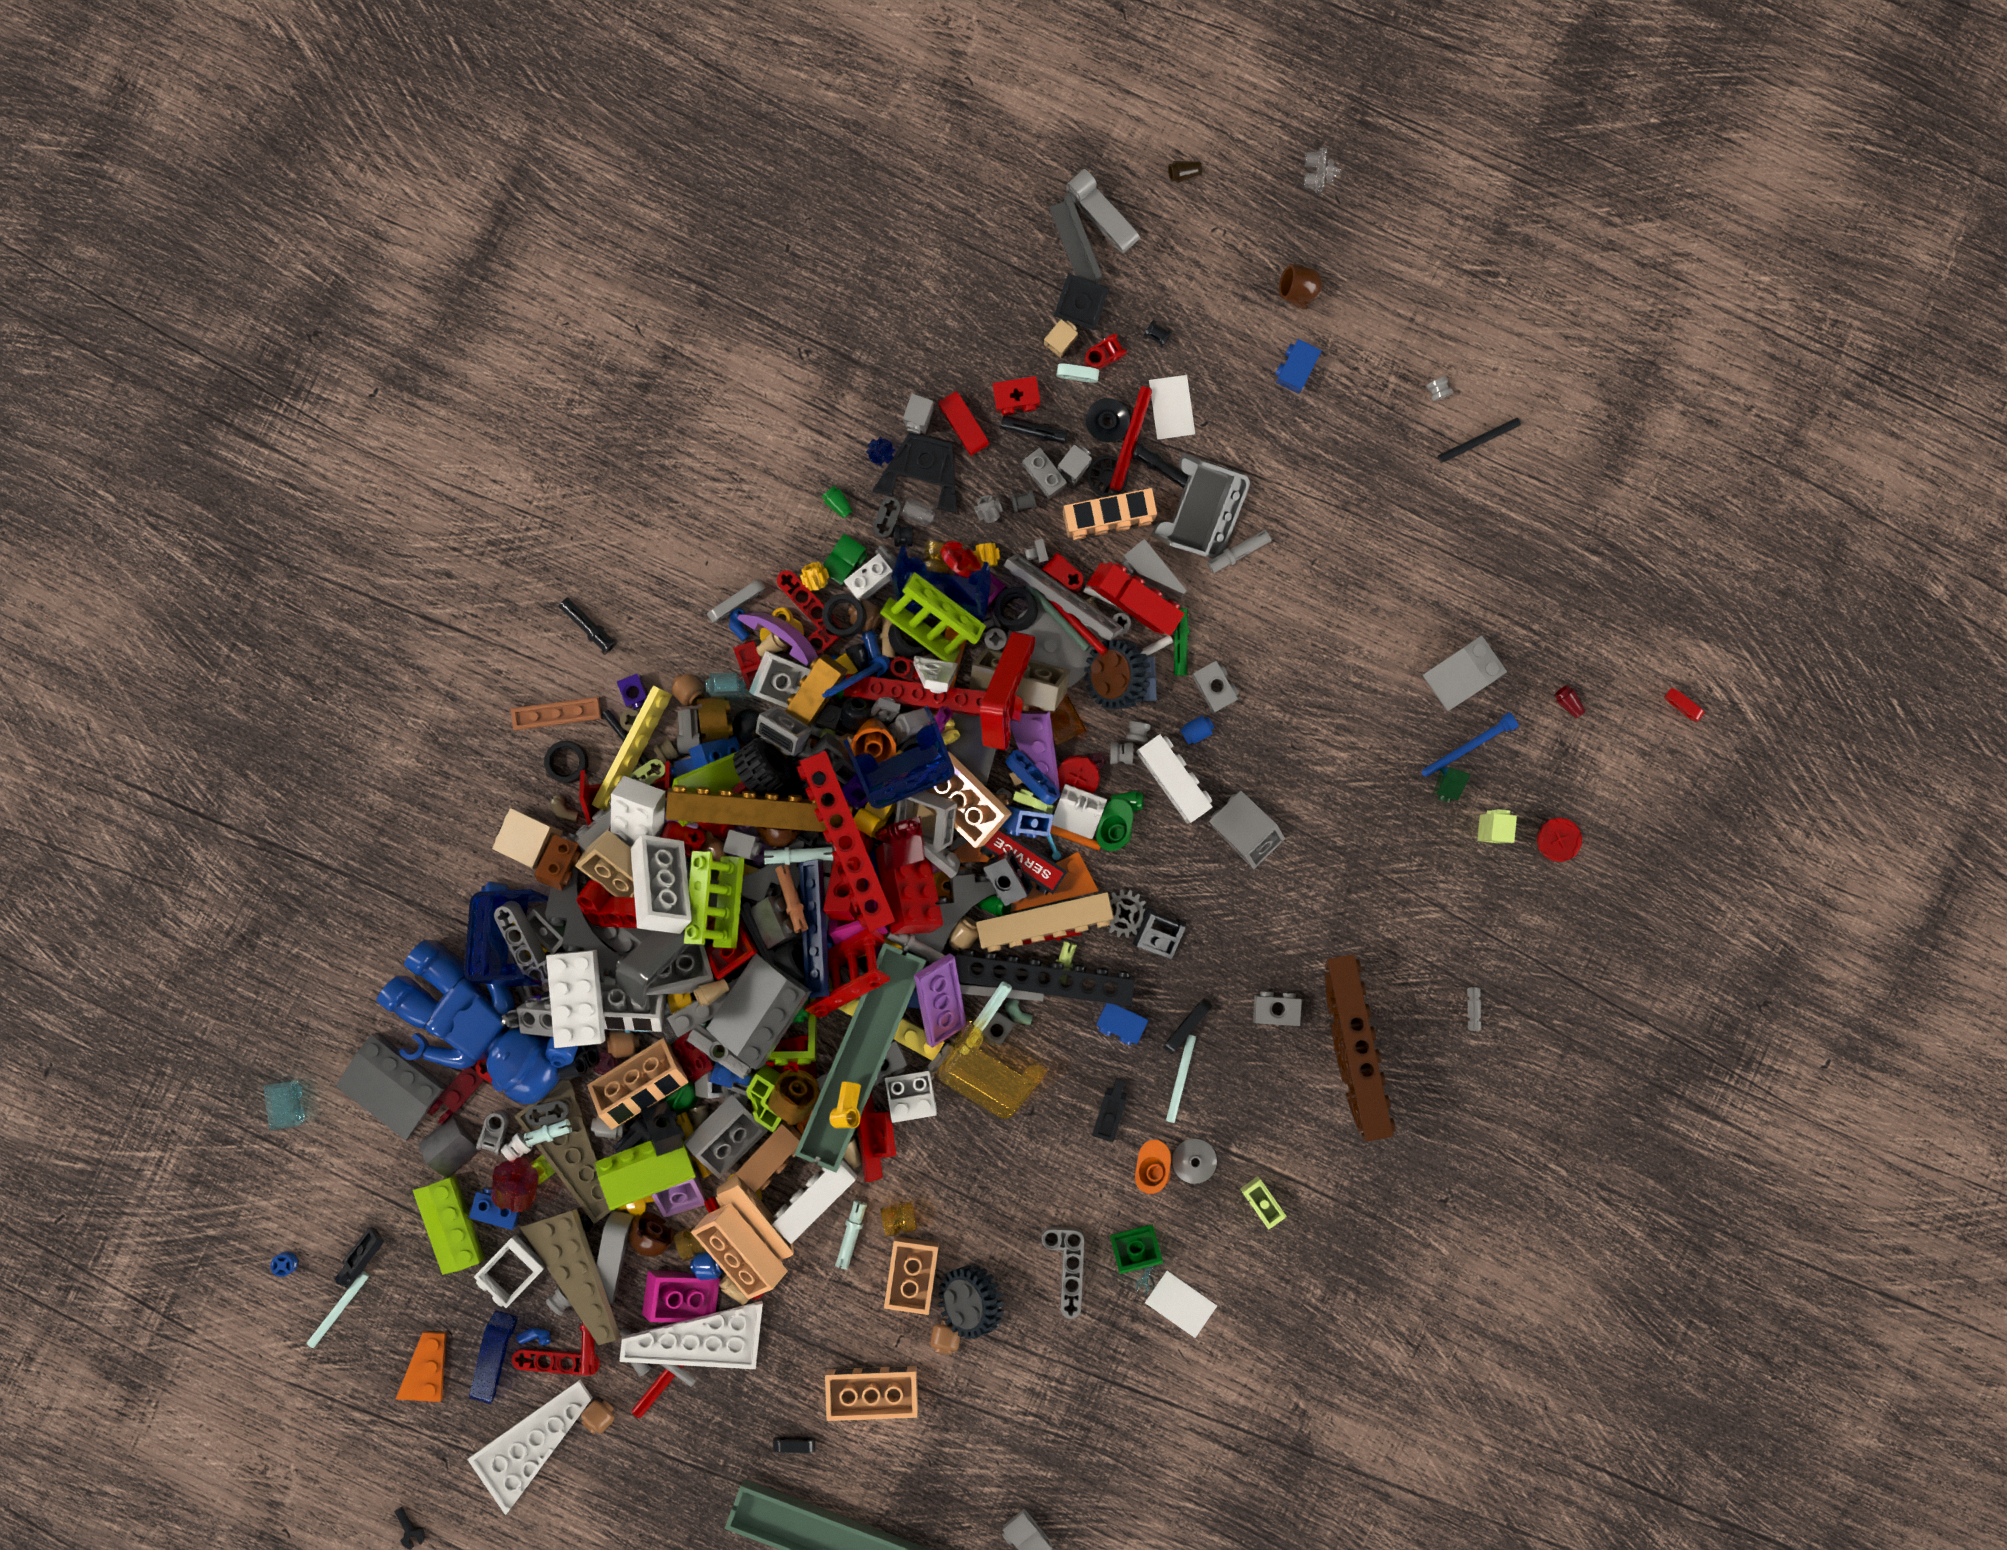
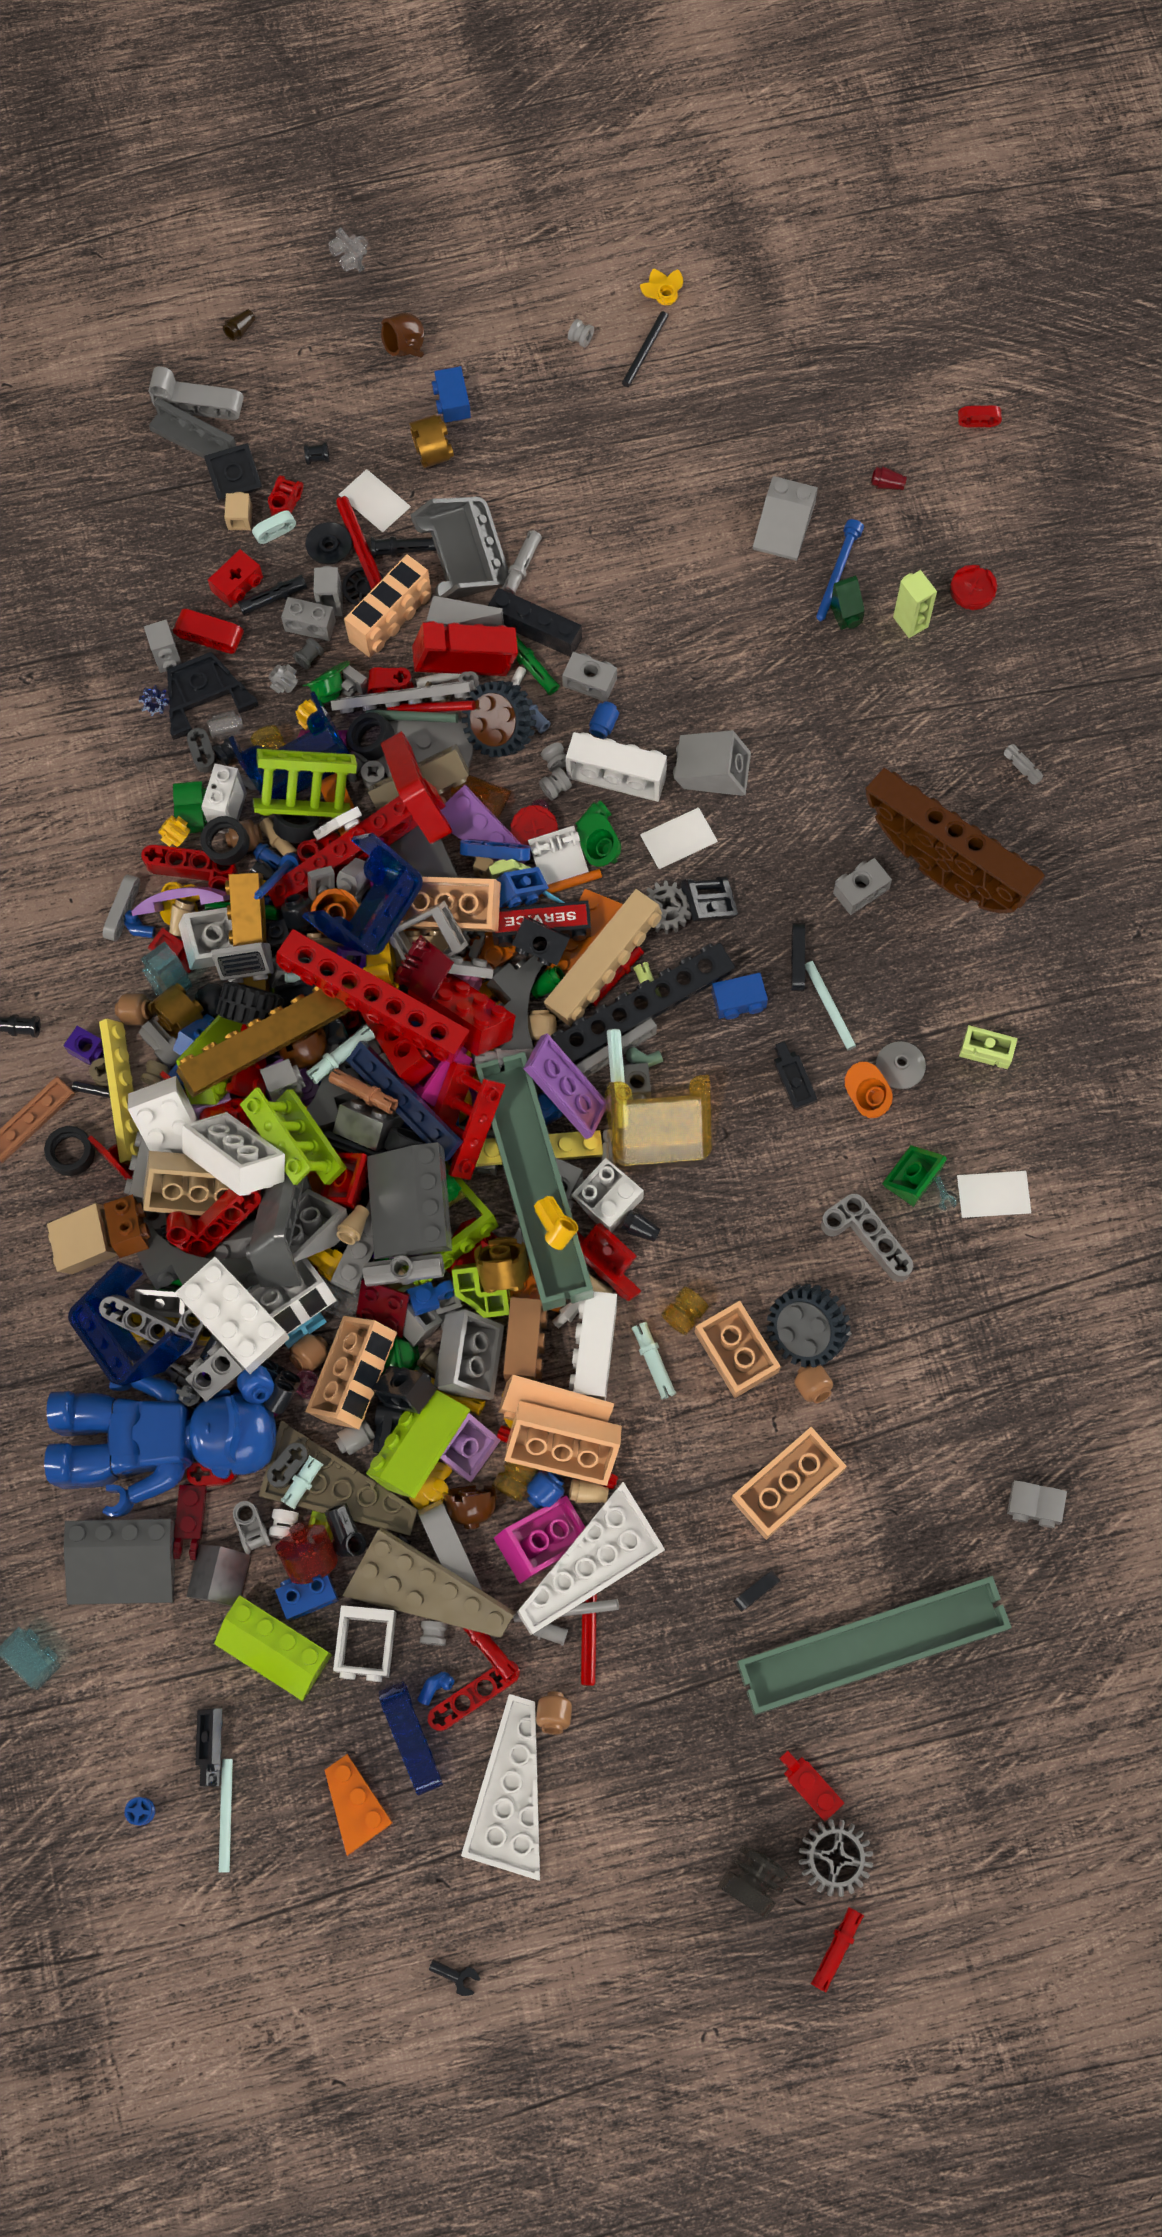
camera: 35 degrees left, 15 degrees down
(551, 1188) = (343, 1530): none -> black piece
(560, 810) = (94, 1195): dark tan arm -> none
(837, 502) = (147, 767): green cone -> none
(917, 1133) = (640, 1226): none -> black cone
(959, 559) = (289, 724): red tile -> none
(1018, 538) = (329, 684): none -> green piece
(1178, 864) = (678, 838): none -> white sticker
(1208, 610) = (538, 622): none -> black brick
(1250, 396) = (430, 440): none -> pearl gold brick
(1537, 393) = (662, 285): none -> yellow plate

